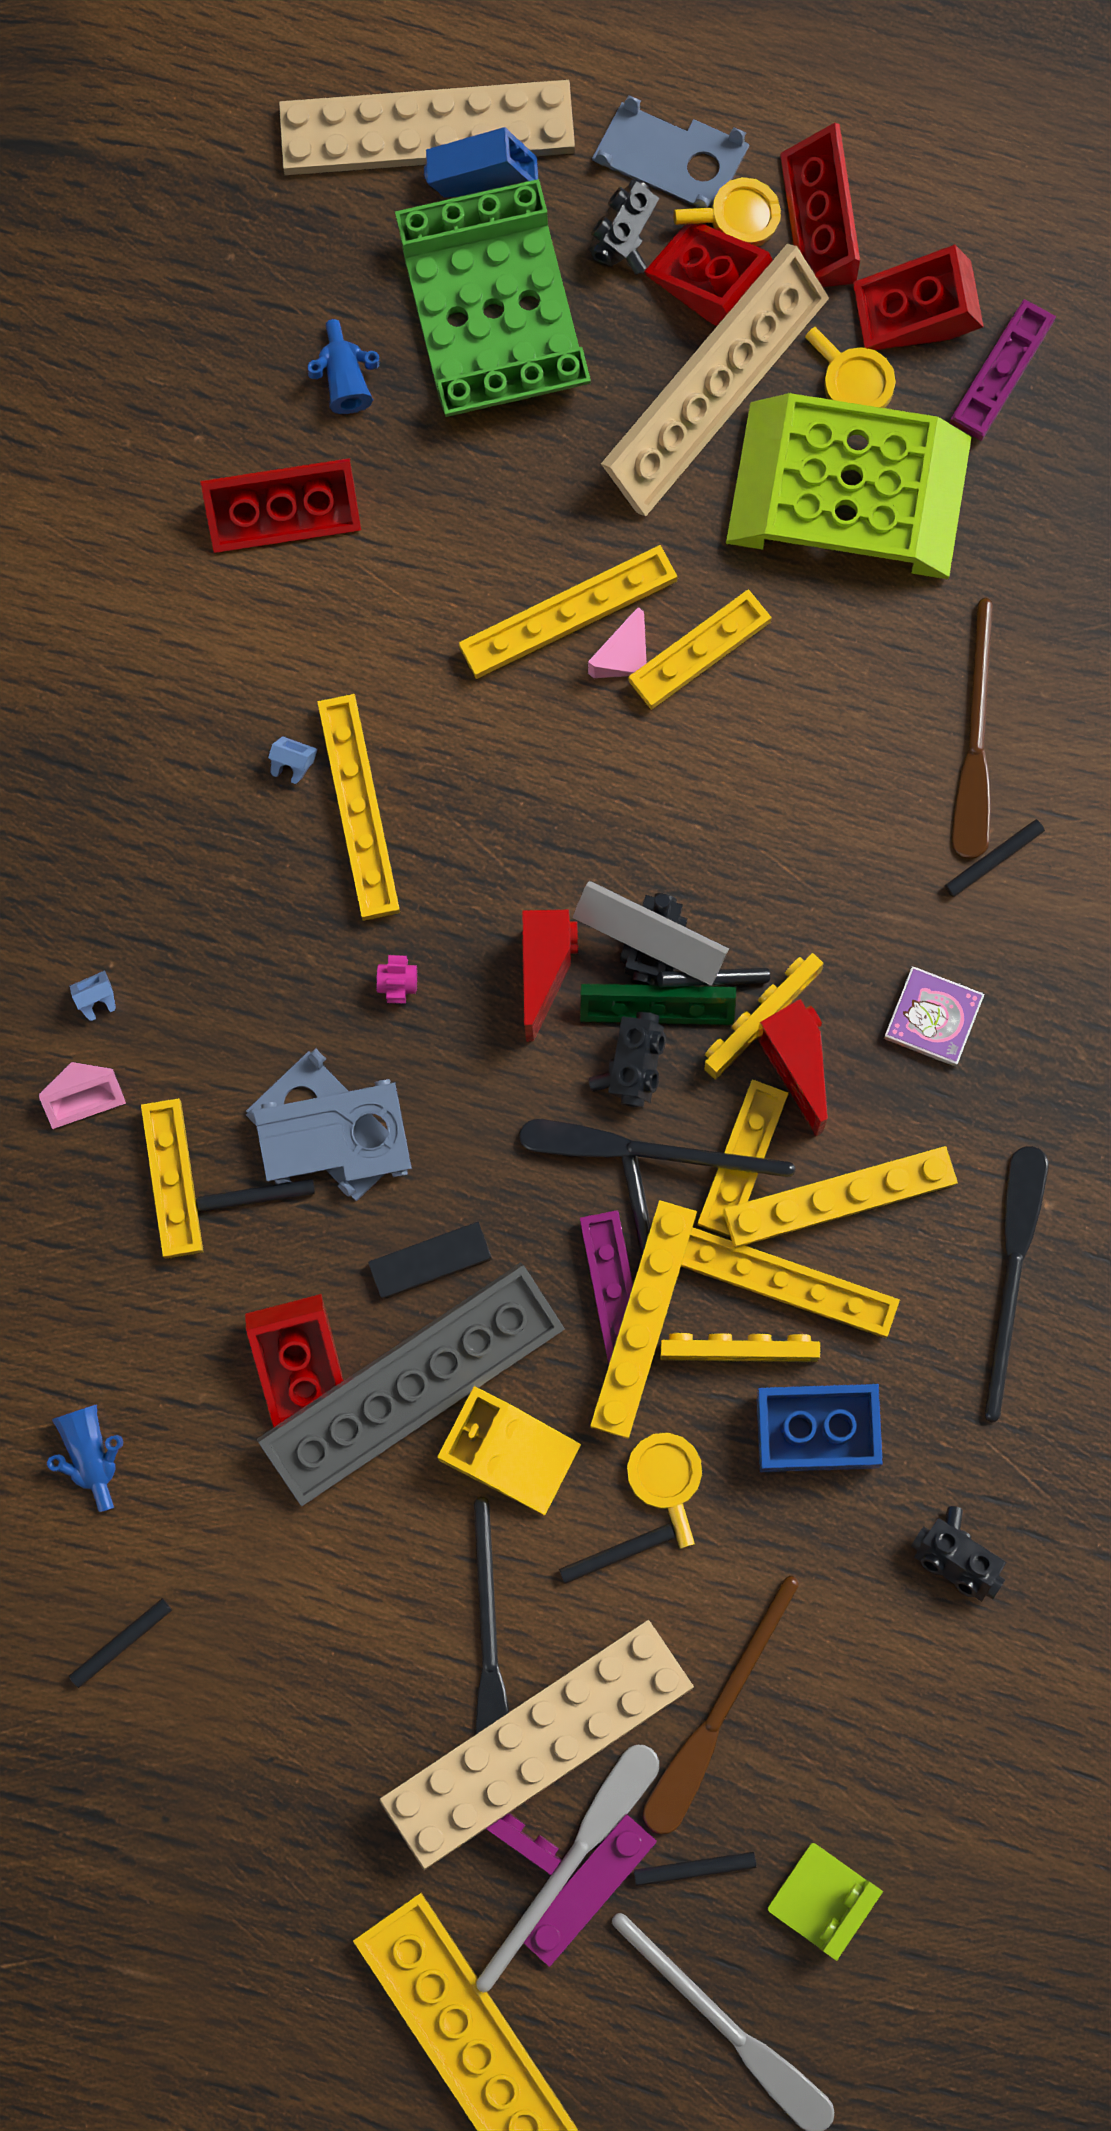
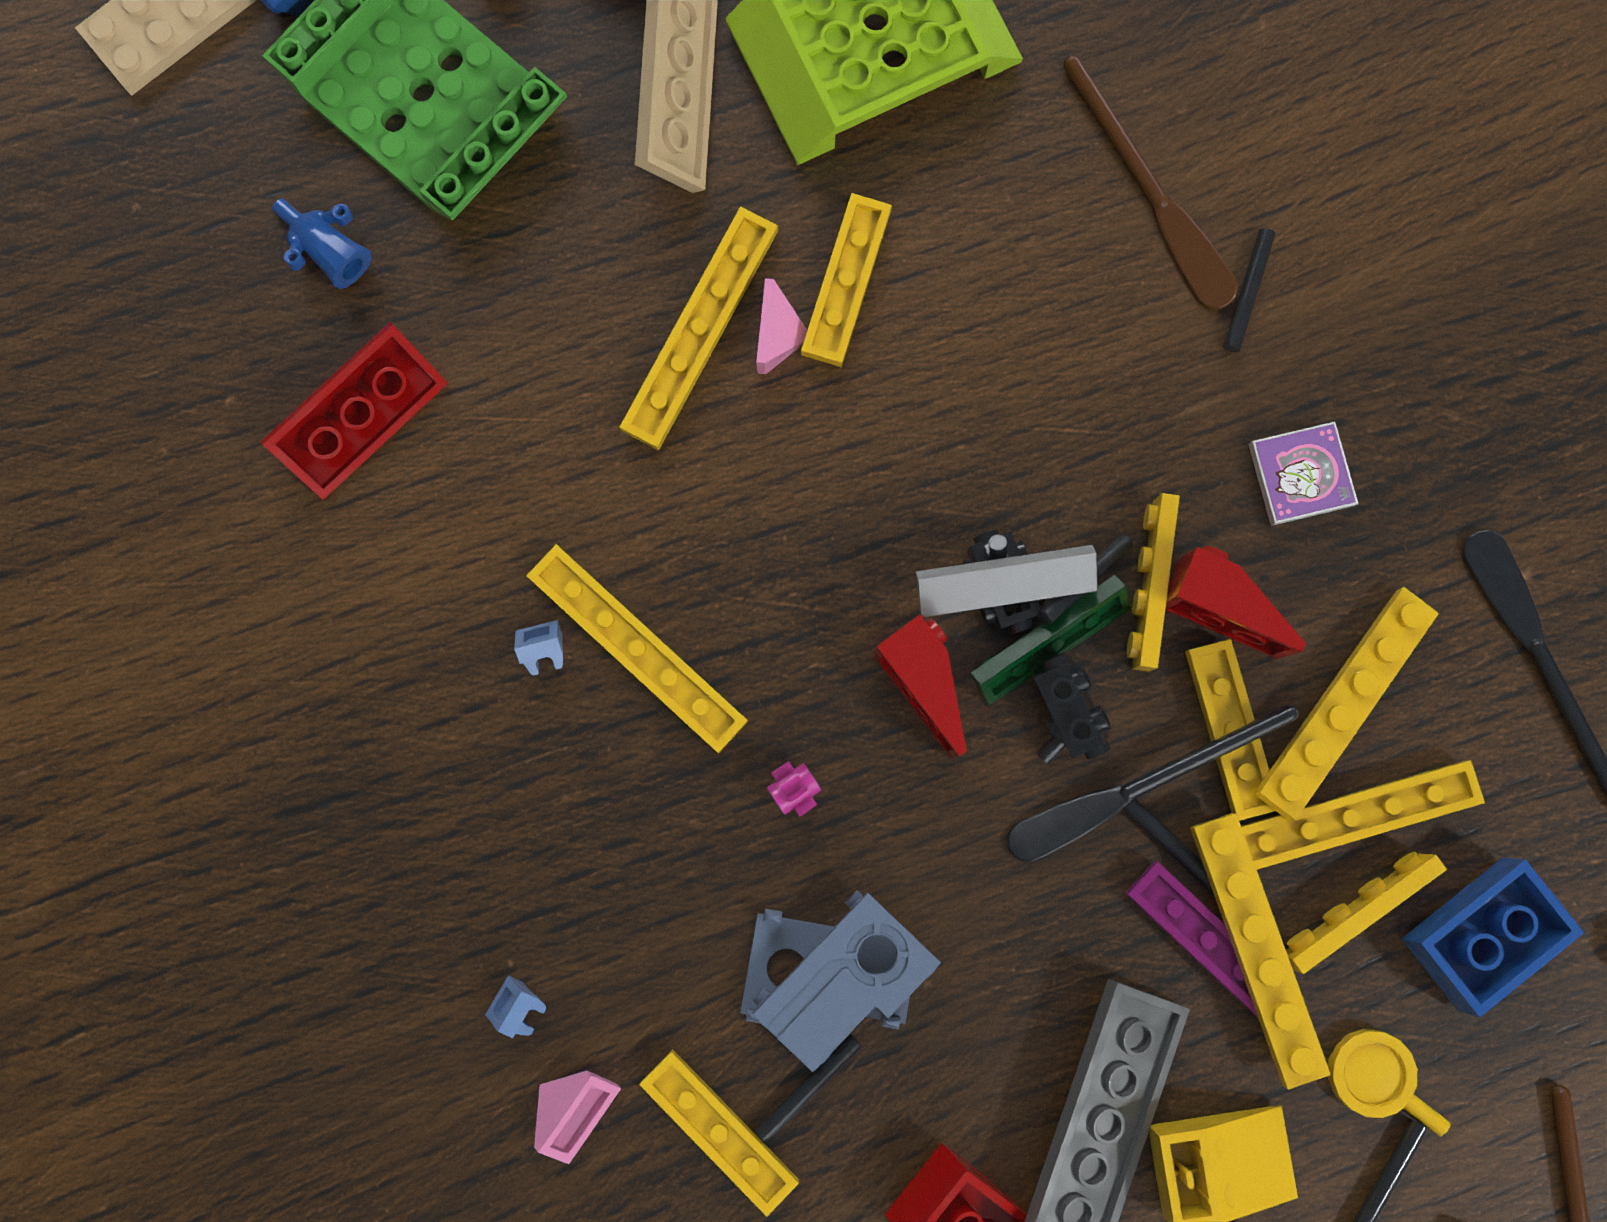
camera: 40 degrees left, 5 degrees up
(430, 1260) = (1015, 1032): black tile -> none

